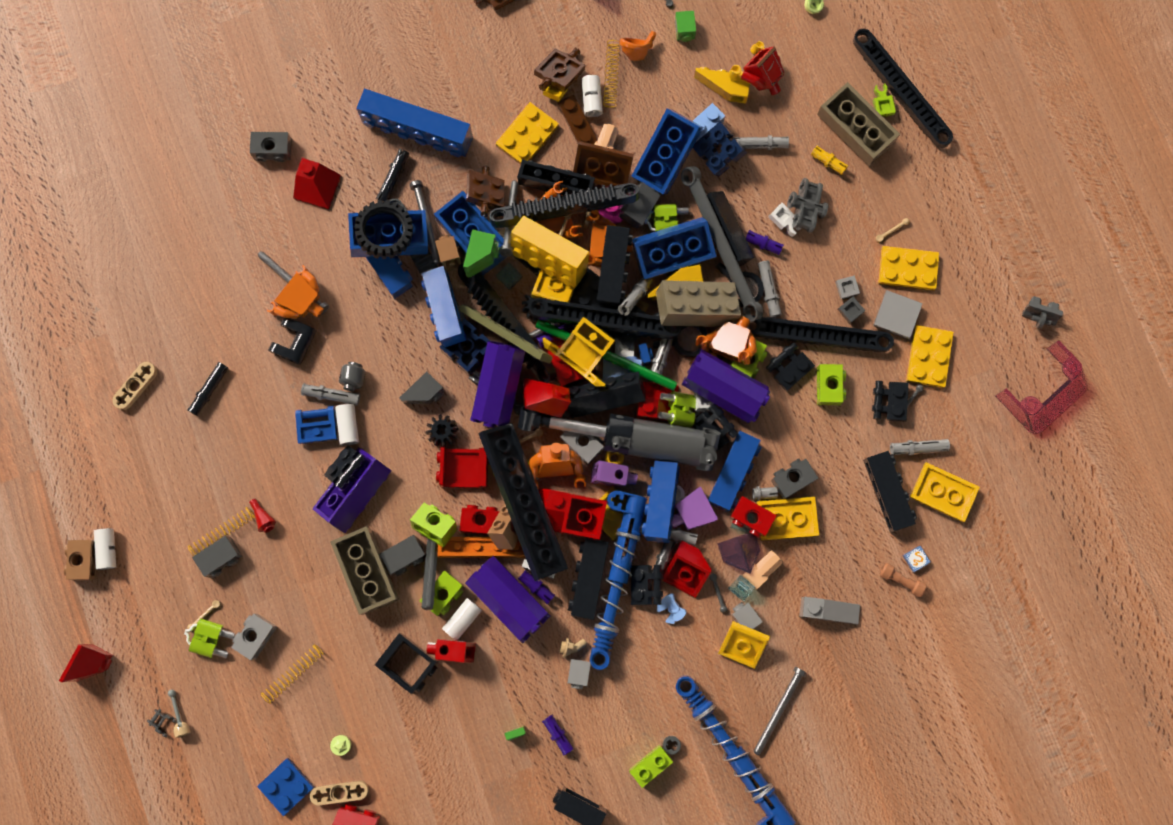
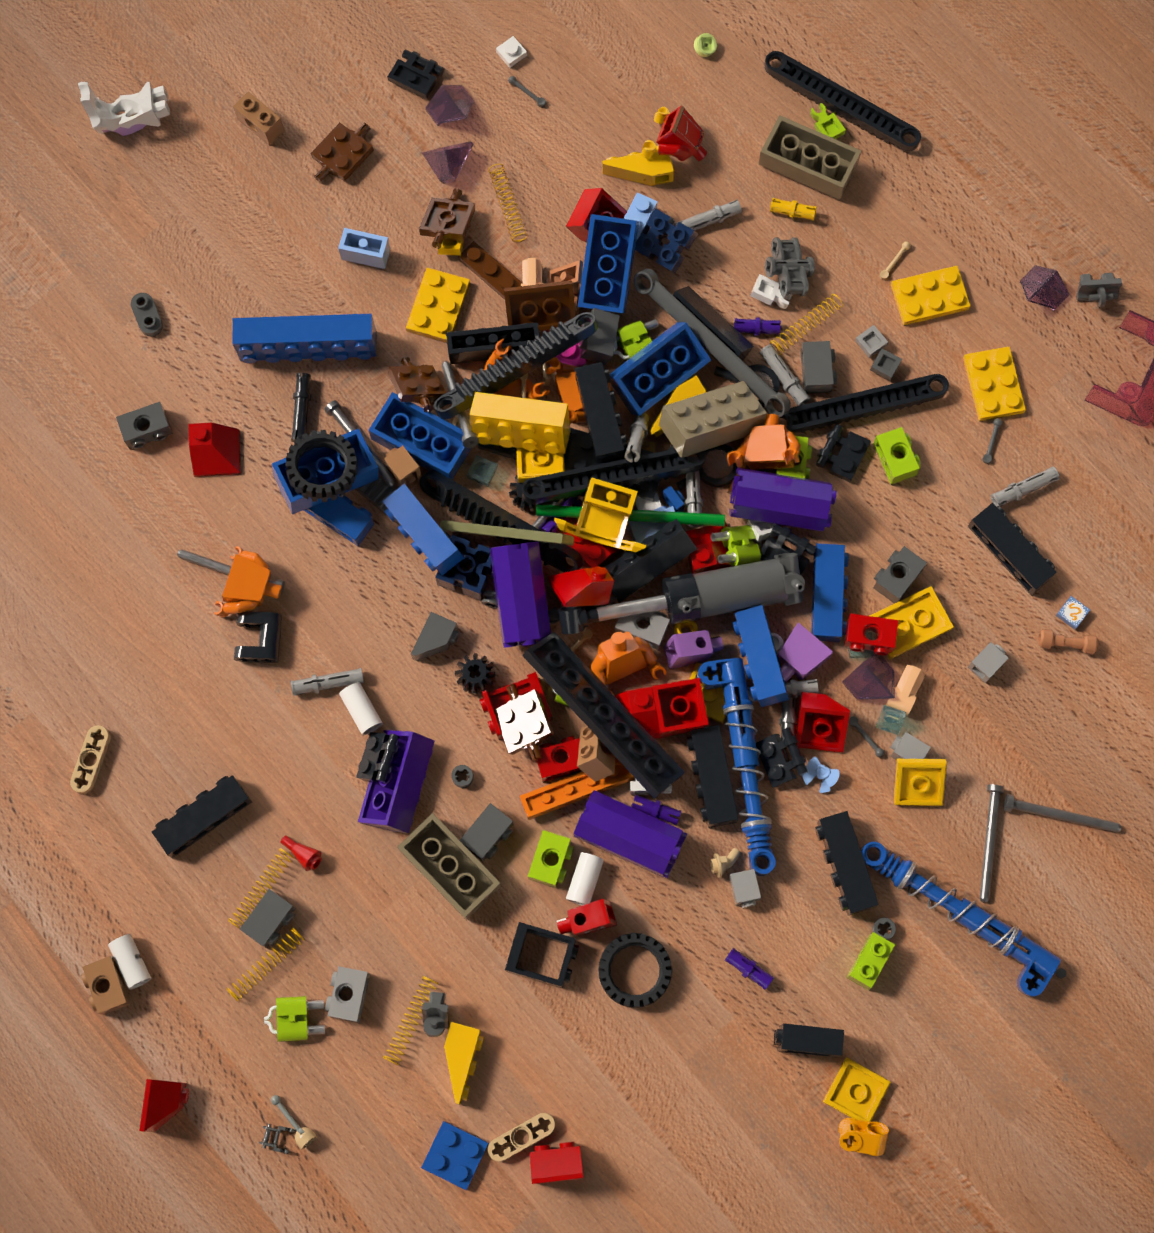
camera: 20 degrees left, 5 degrees down
(194, 591) = (234, 995): none -> yellow piece
(198, 460) = (201, 816): none -> black brick
(207, 389) = (179, 730): black pin -> none
(215, 604) = (287, 976): tan hinge -> none
(306, 58) = (145, 313): none -> dark grey plate
(310, 678) = (435, 1015): none -> dark grey hips
(316, 431) = (327, 730): blue plate -> none
(318, 712) = (460, 1052): none -> yellow slope
(340, 745) = (500, 1081): yellowish green tile -> none
(352, 376) = (345, 651): dark grey head -> none
(404, 499) = (461, 768): none -> dark grey bush
(429, 575) = (527, 840): dark grey axle -> none
(438, 533) = (517, 791): lime brick -> none
(454, 719) = (656, 949): none -> black tyre
(462, 483) = (523, 722): none -> plate
(481, 252) = (444, 450): bright green slope -> none
(487, 69) = (364, 248): none -> light blue brick
(512, 734) = (700, 985): bright green tile -> none
(579, 23) = (448, 160): none -> slope
(592, 96) = (495, 235): white pin -> none
(635, 48) = (525, 165): orange hat -> none
(635, 147) = (566, 273): none -> nougat slope
(662, 685) = (847, 863): none -> black brick
(677, 100) = (595, 202): none -> red slope
(685, 26) = (570, 119): bright green brick -> none
(764, 493) = (872, 604): light grey pin -> none
(797, 292) = (817, 367): none -> dark grey brick
(803, 255) = (805, 323): none -> yellow piece
(806, 687) = (1011, 803): none -> flat silver bar
(829, 610) = (998, 707): light grey slope -> none
(835, 572) = (988, 661): none -> light grey brick
(897, 314) = (939, 350): light grey tile -> none
(897, 401) = (979, 447): black plate -> none
(944, 492) = (1073, 526): yellow plate -> none
(999, 295) = (1044, 287): none -> slope

